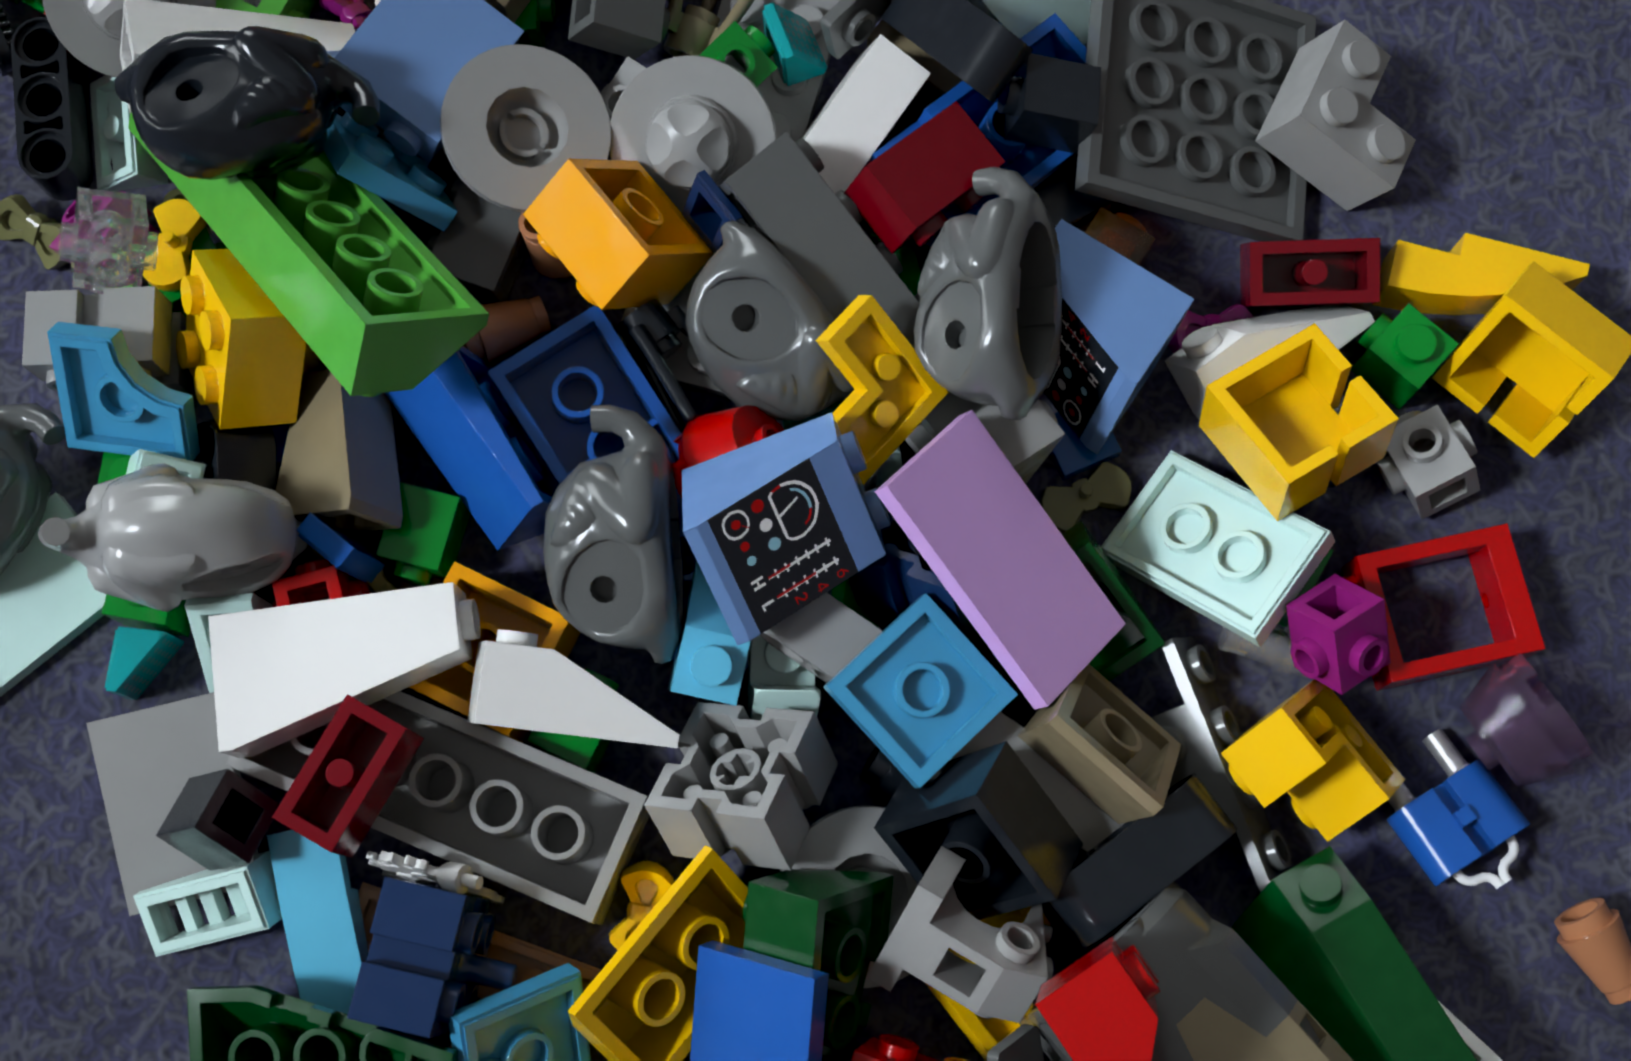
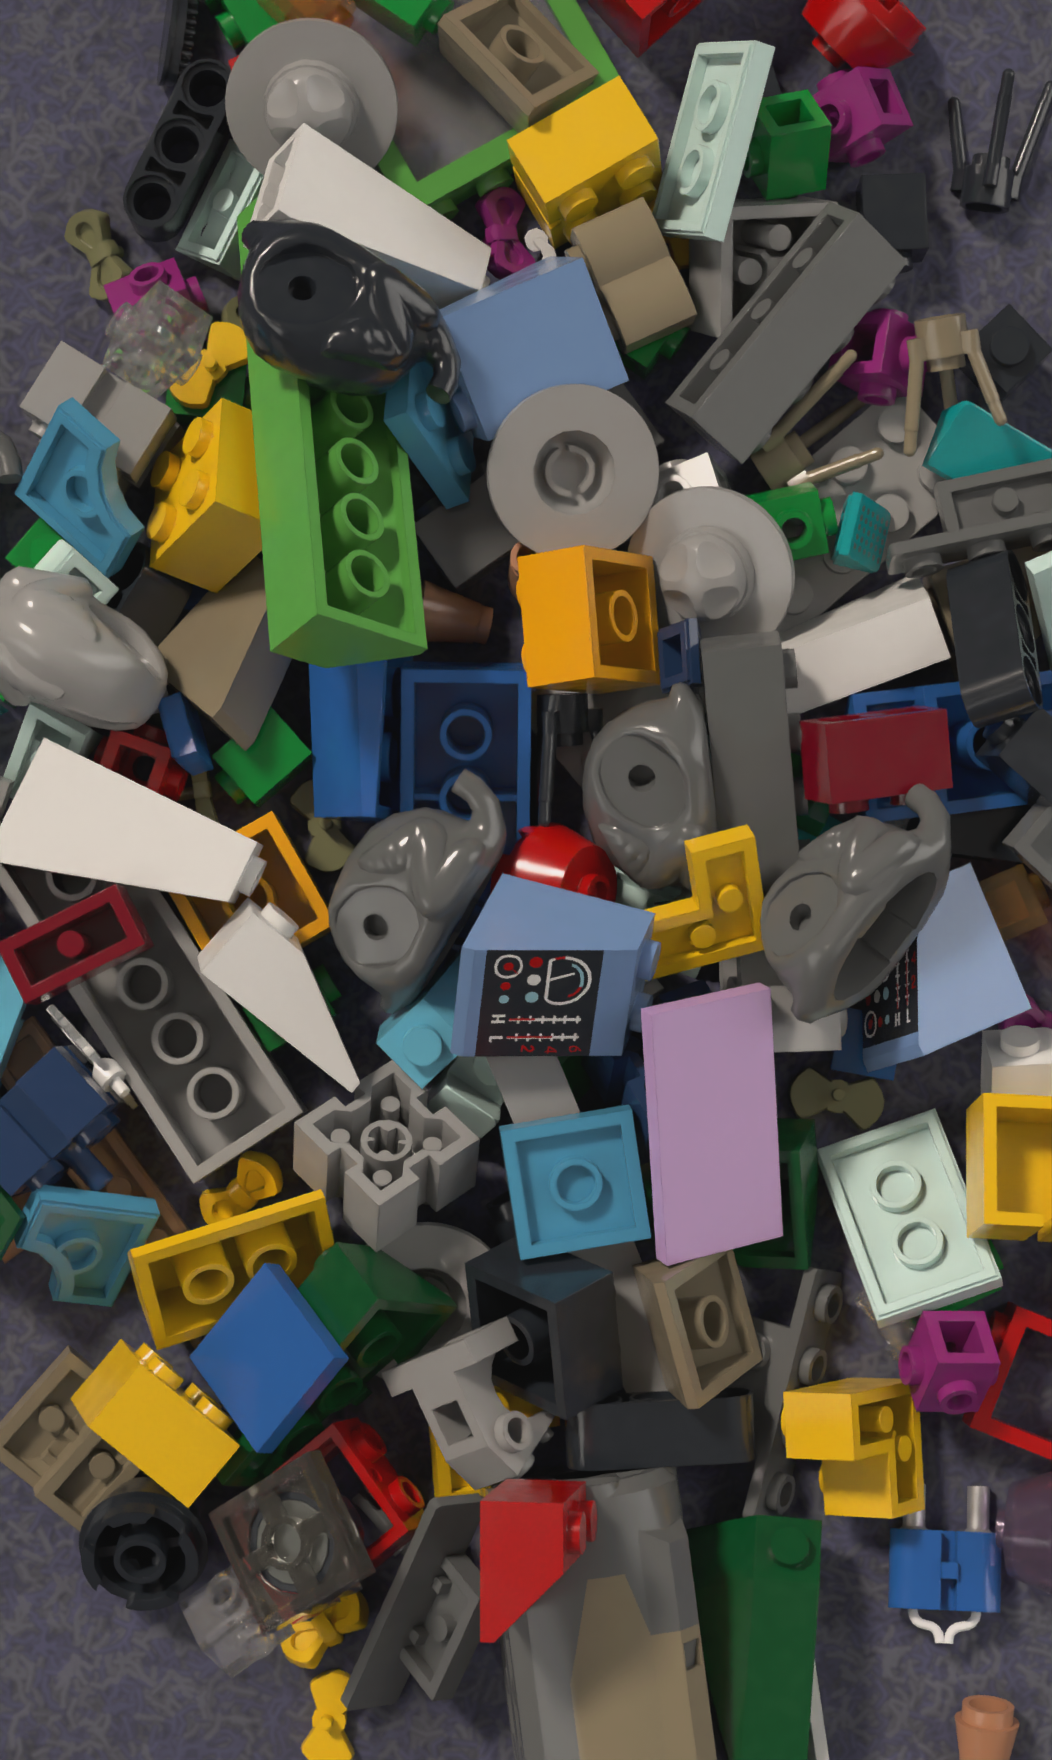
camera: 30 degrees right, 10 degrees up
(525, 569) = (329, 844): none -> olive piece

